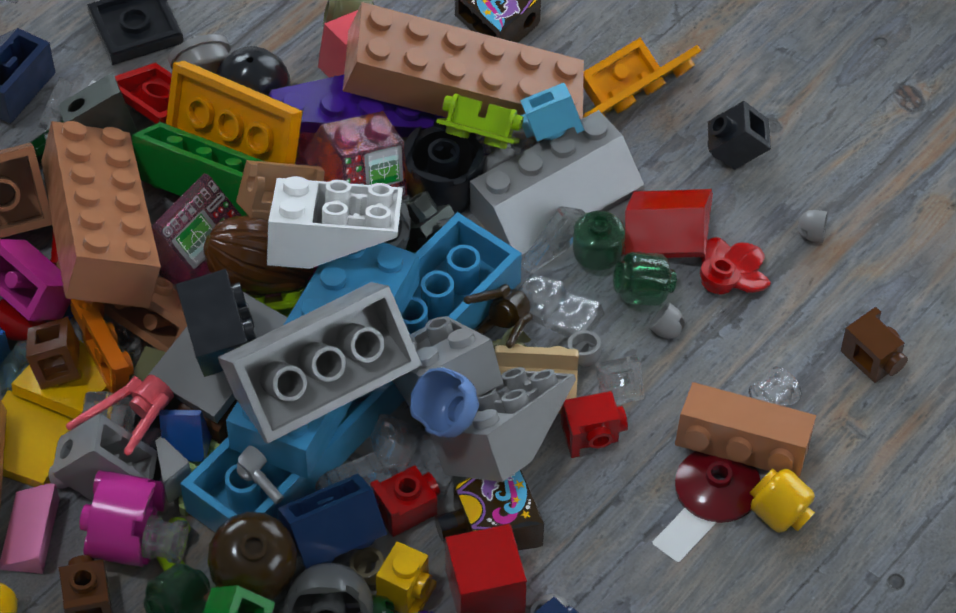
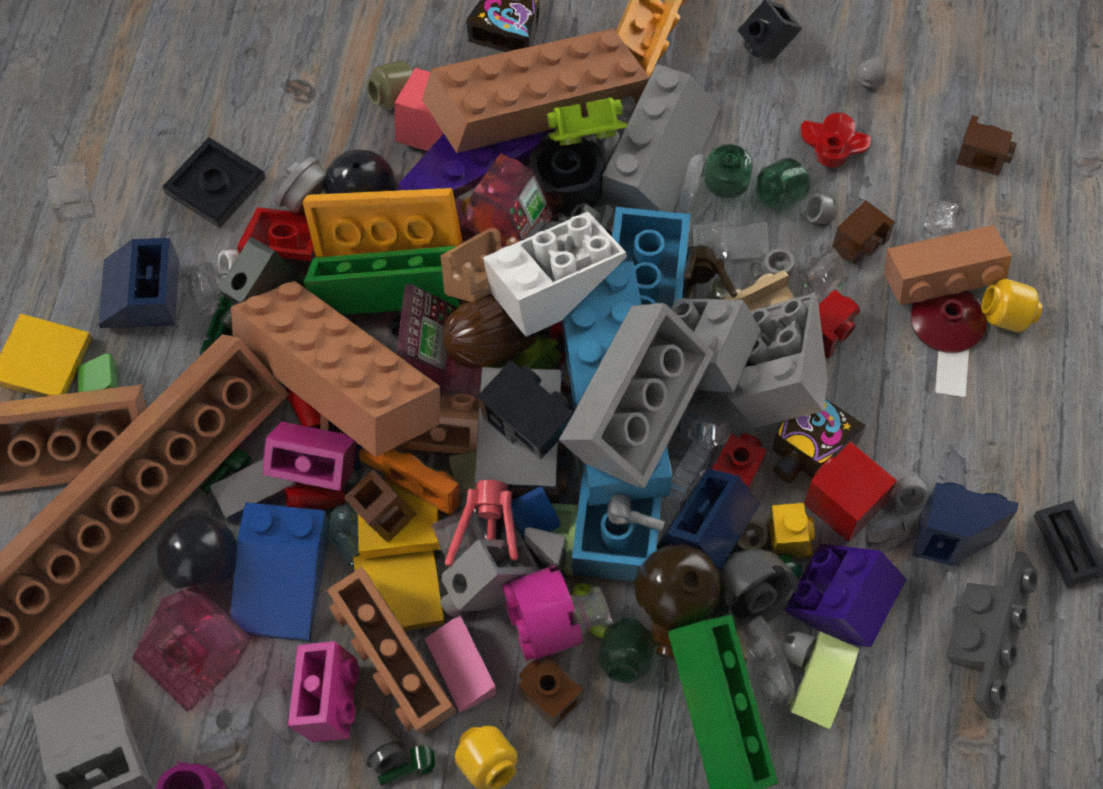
camera: 30 degrees left, 10 degrees up
(444, 402) = (749, 373): medium blue hair -> none
(550, 114) = (632, 84): medium azure brick -> none
(668, 222) = (766, 127): red slope -> none
(686, 360) = (862, 233): none -> reddish brown brick

